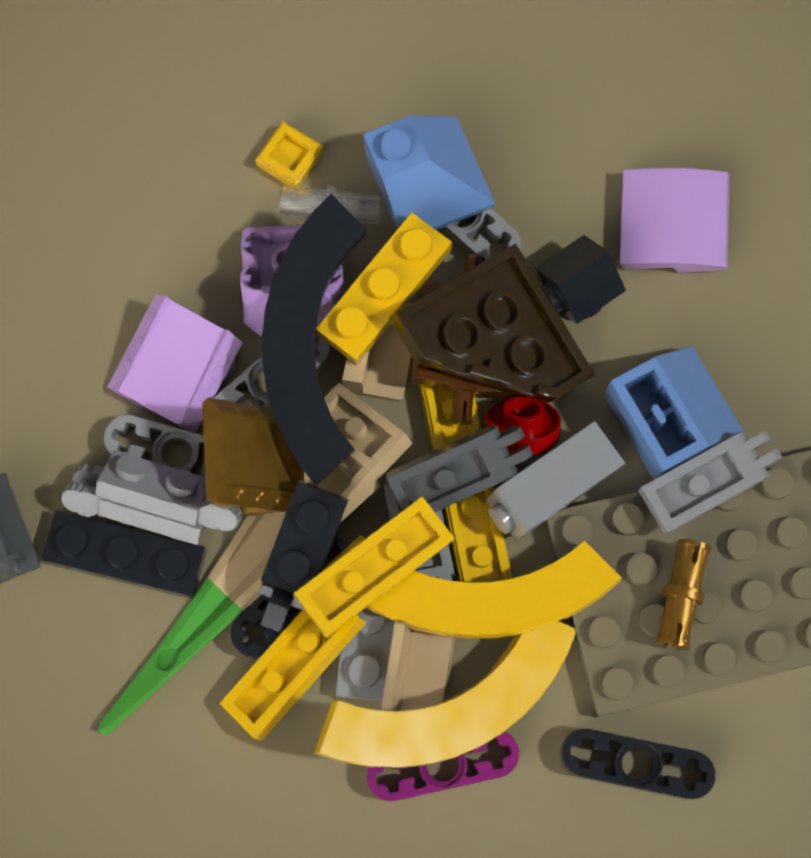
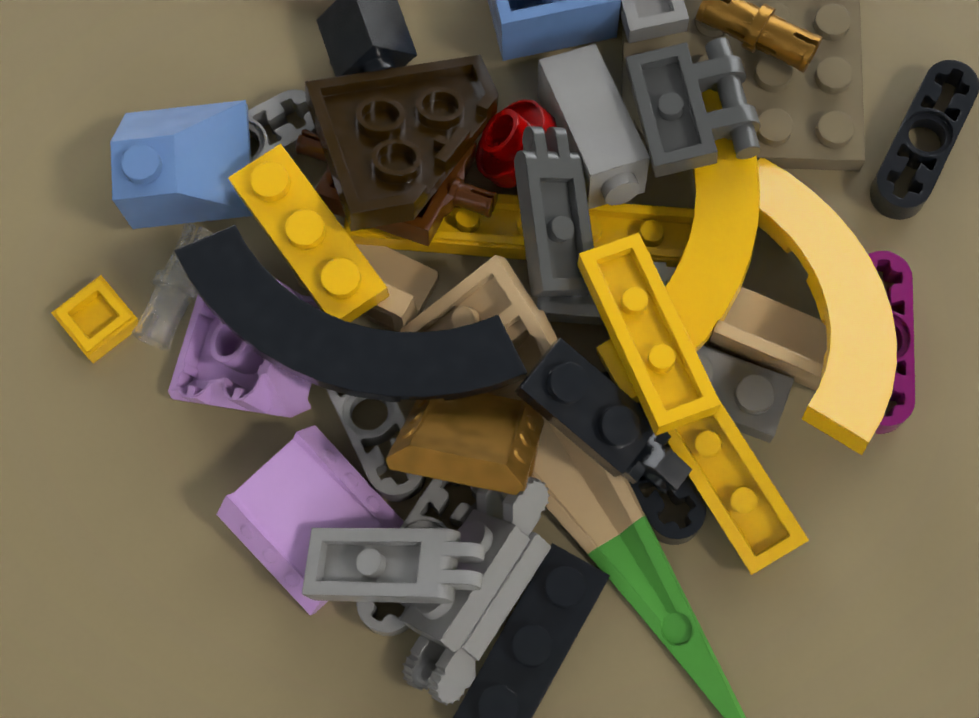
camera: 70 degrees left, 5 degrees down
(143, 426) = (389, 565): none -> light grey hinge
(574, 538) = (673, 111): none -> dark grey plate

